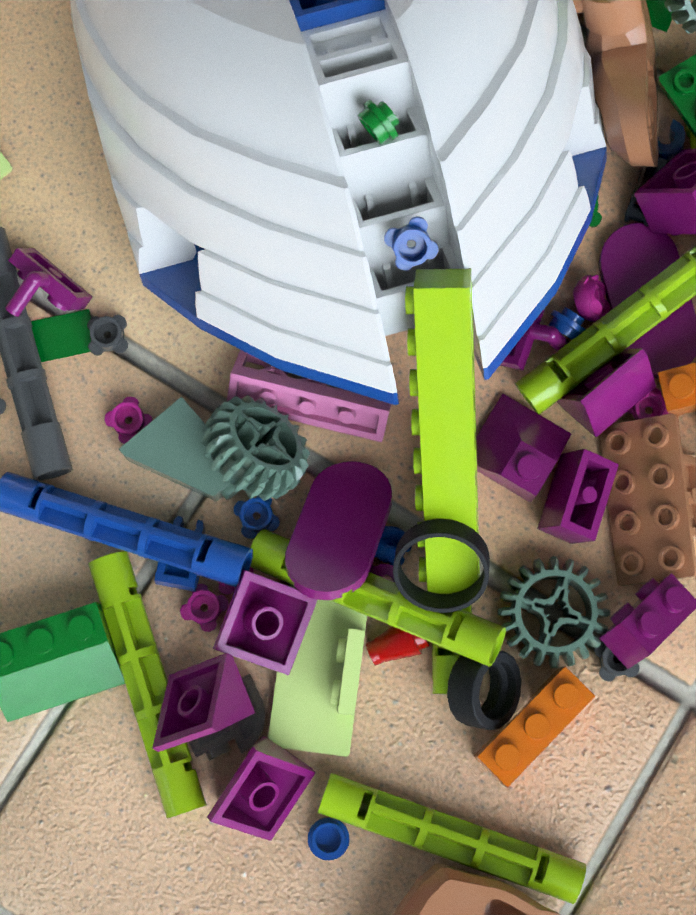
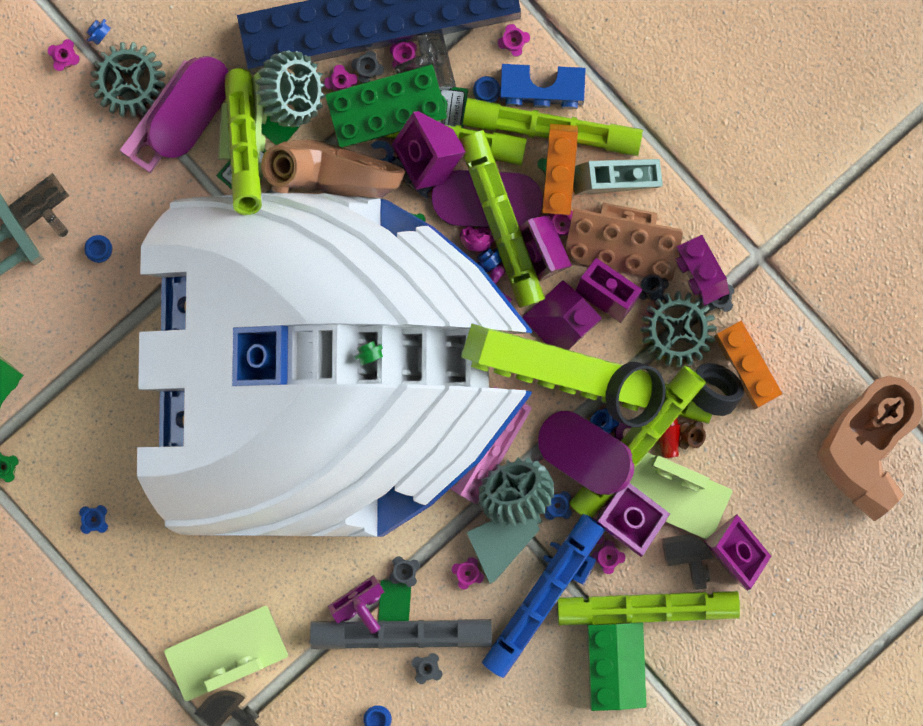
camera: 70 degrees left, 5 degrees up
(201, 702) = (674, 574): magenta slope -> none
(328, 838) = (781, 518): blue plate -> none
(409, 684) = (697, 437): none -> reddish brown plate
(414, 256) = (455, 355): plate -> none
(453, 838) = (803, 439): lime piece -> none
(600, 560) = (650, 282): none -> black plate

